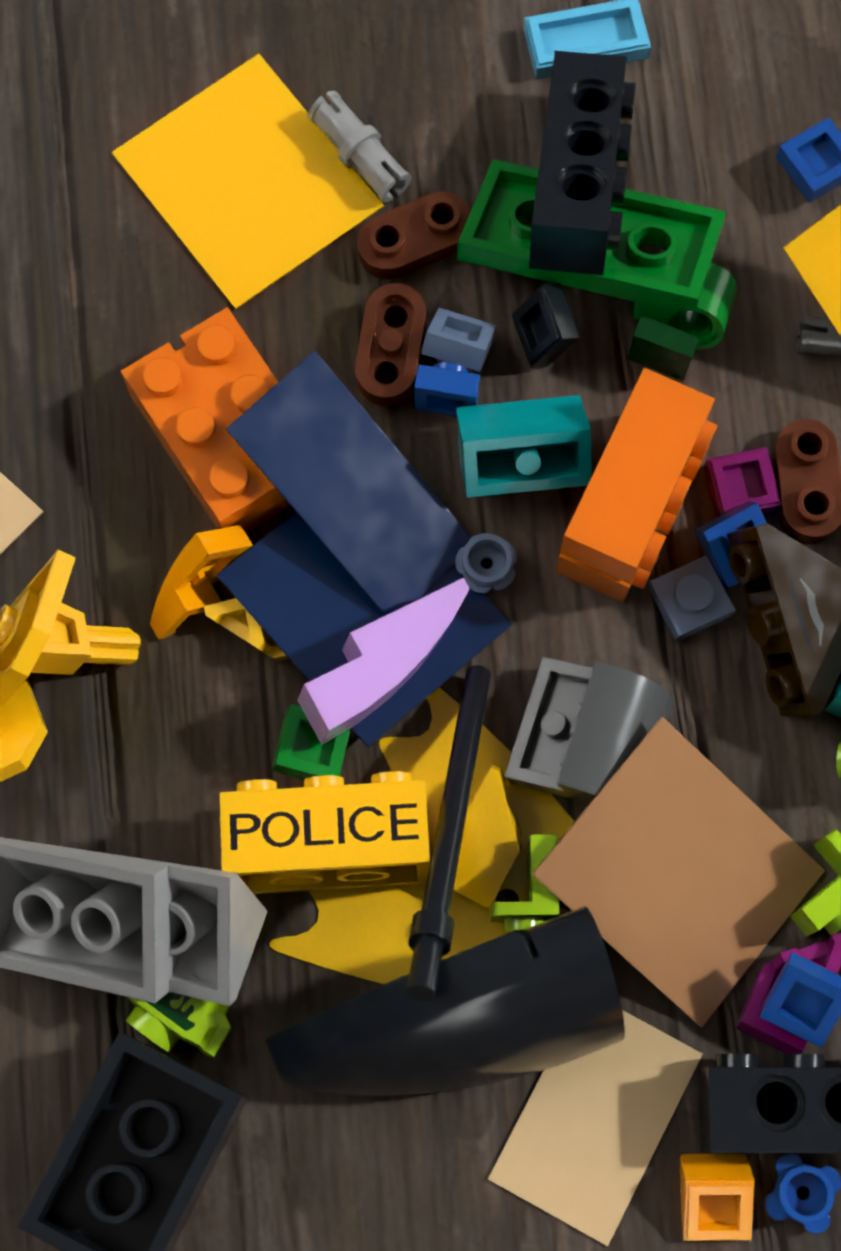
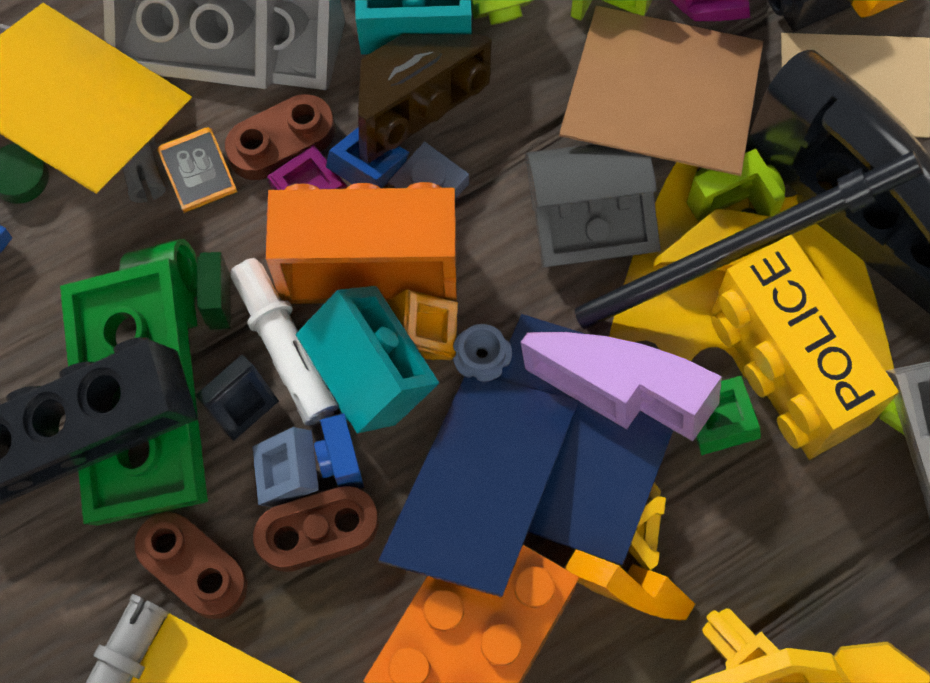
camera: 115 degrees left, 5 degrees down
(539, 524) = (428, 322): none -> light orange slope
(596, 389) = (275, 326): none -> white axle
(803, 387) = (196, 169): none -> slope

